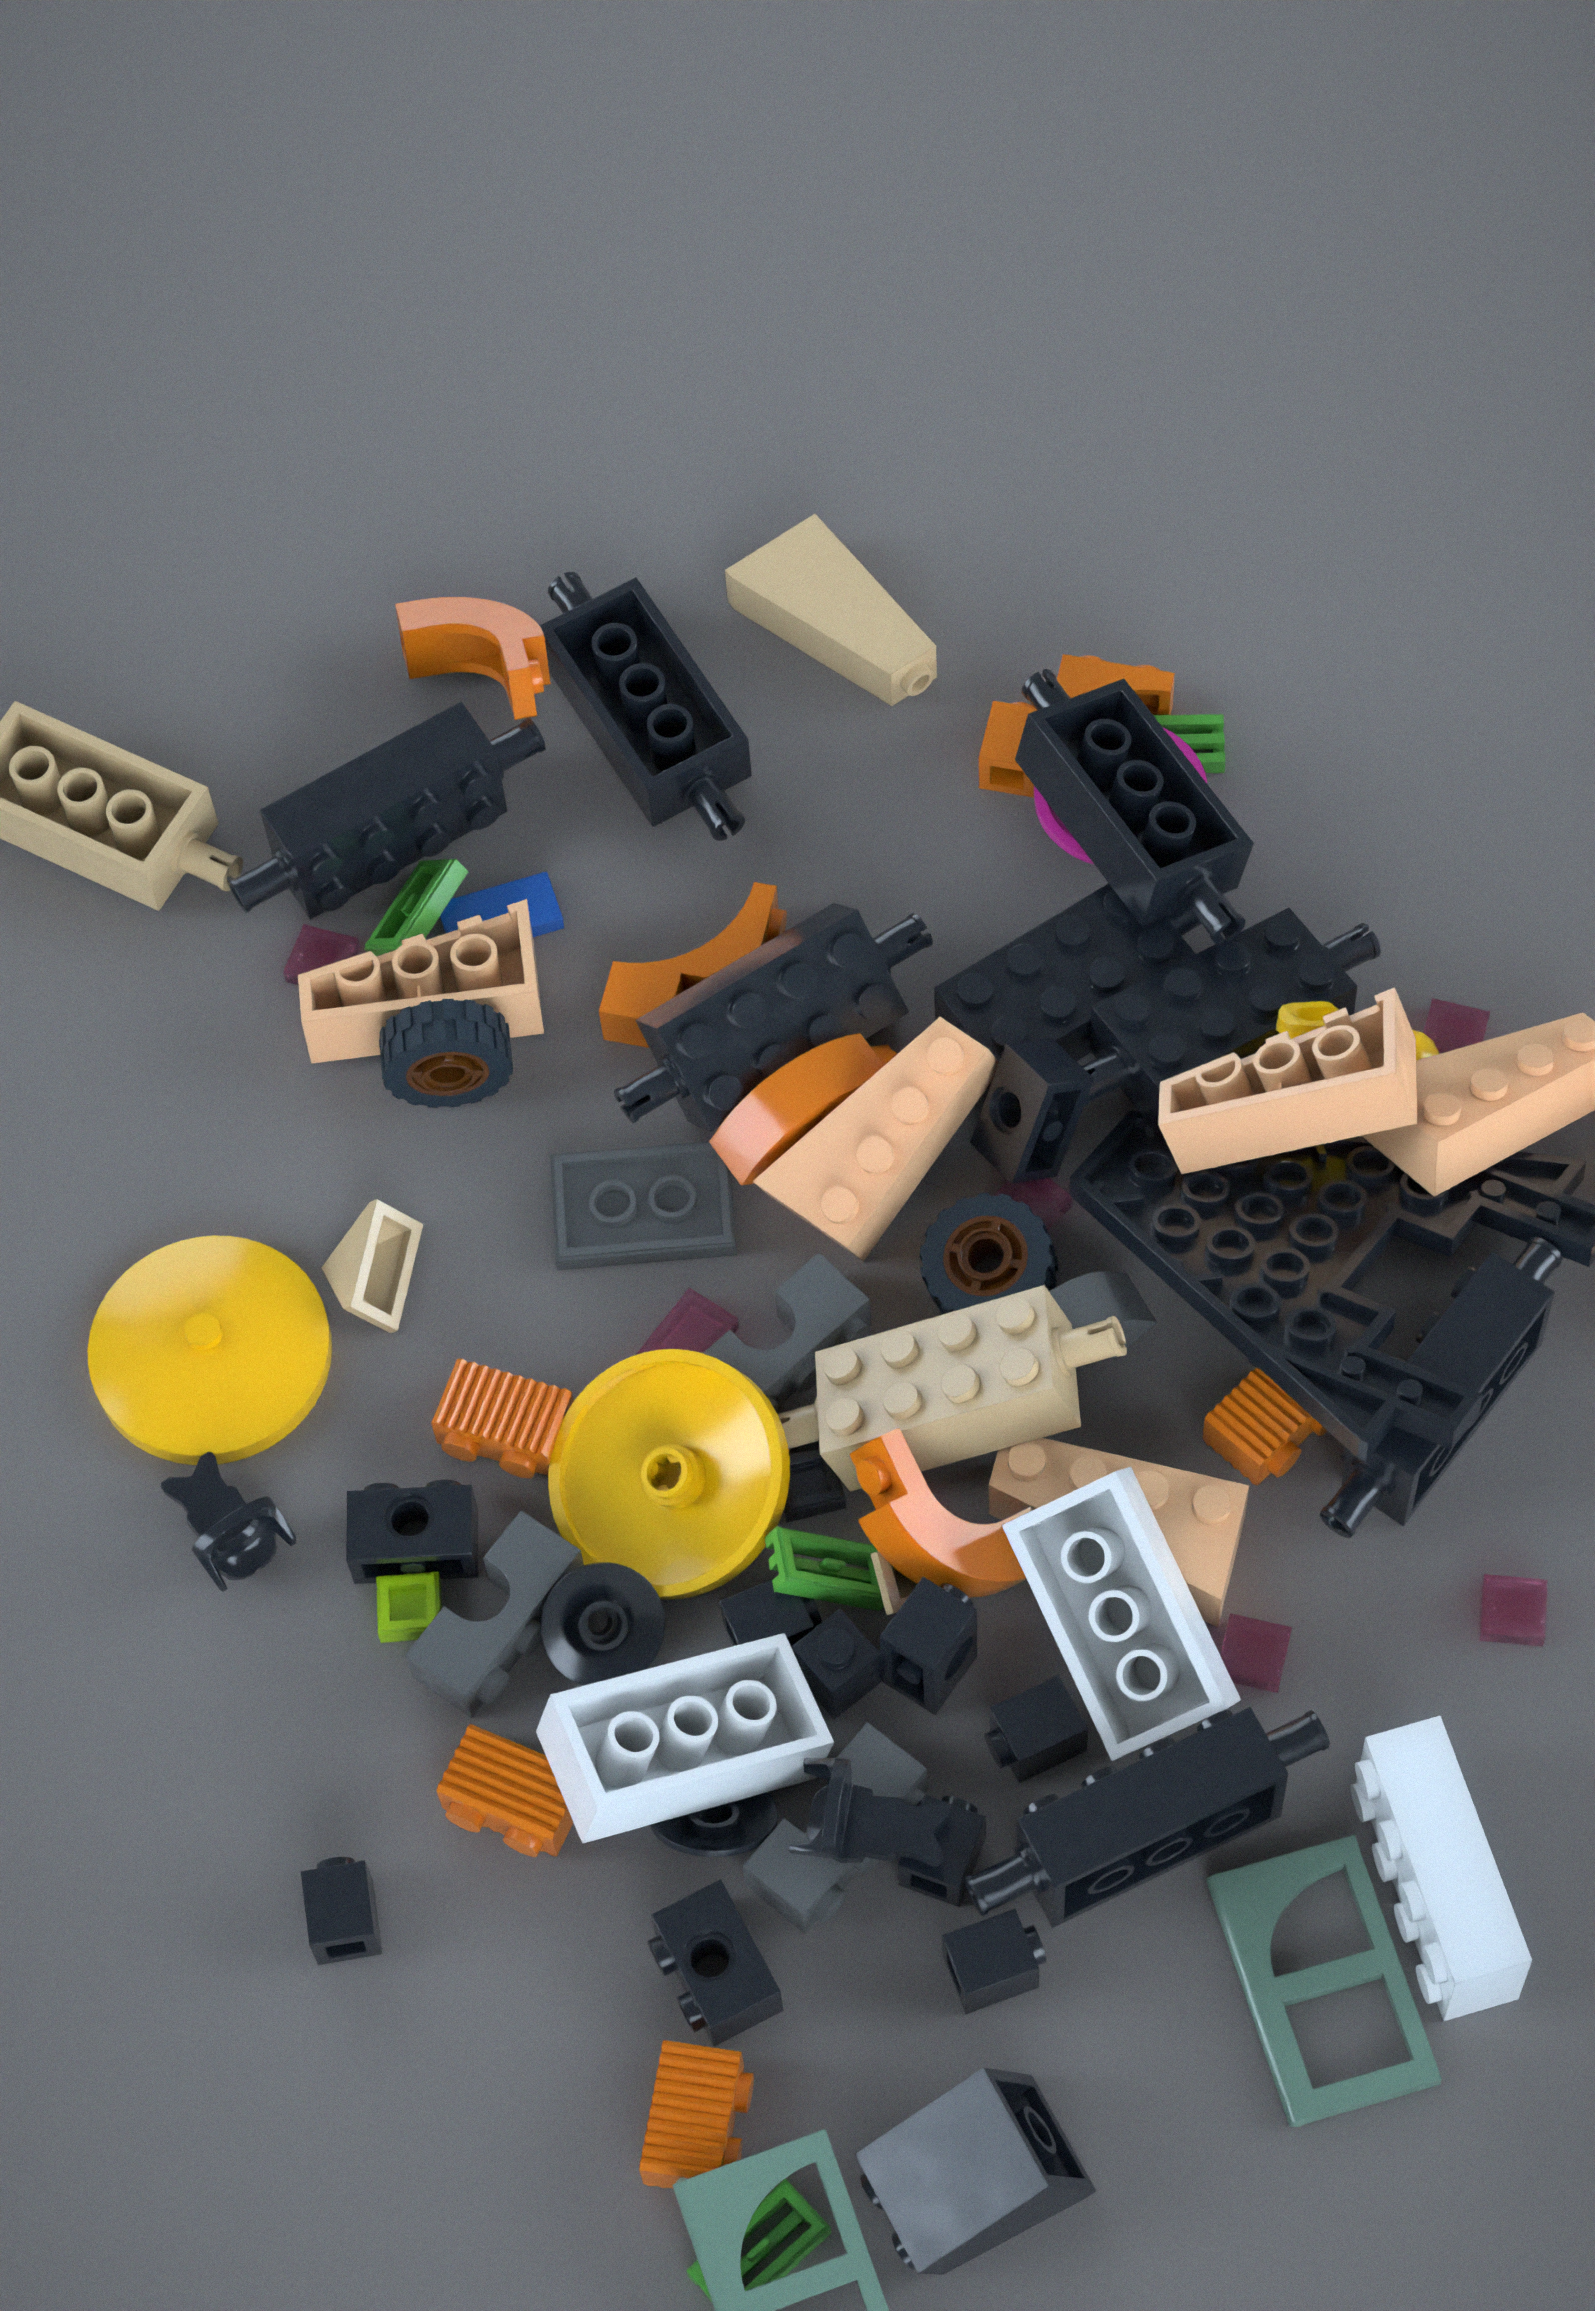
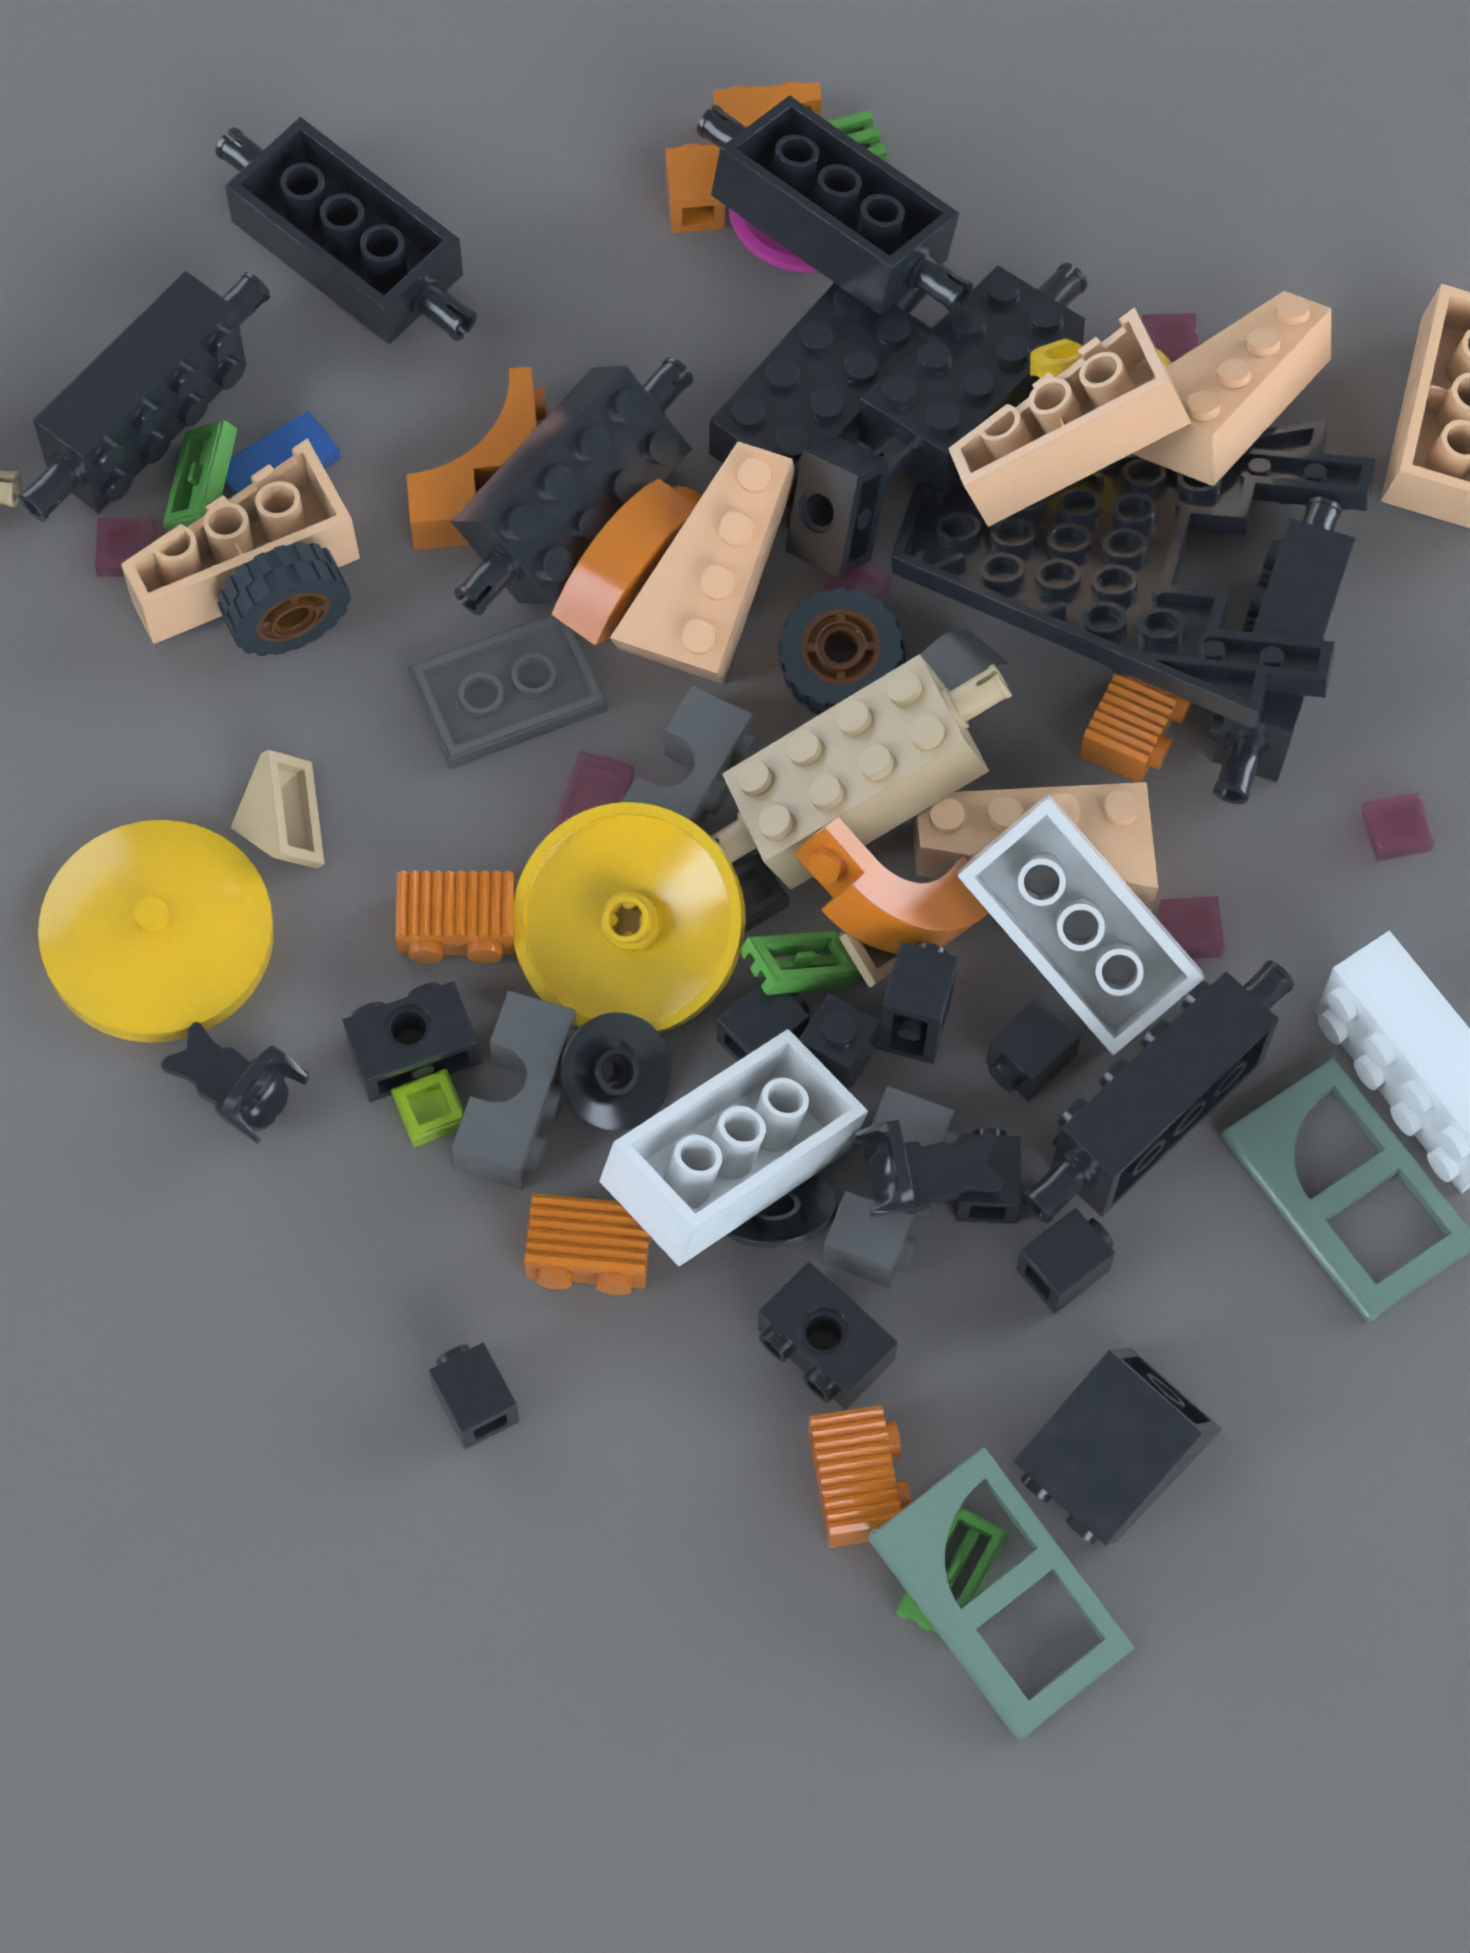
camera: 25 degrees left, 5 degrees up
(476, 638) = (168, 212): orange arch -> none
(833, 610) = (486, 104): tan slope -> none

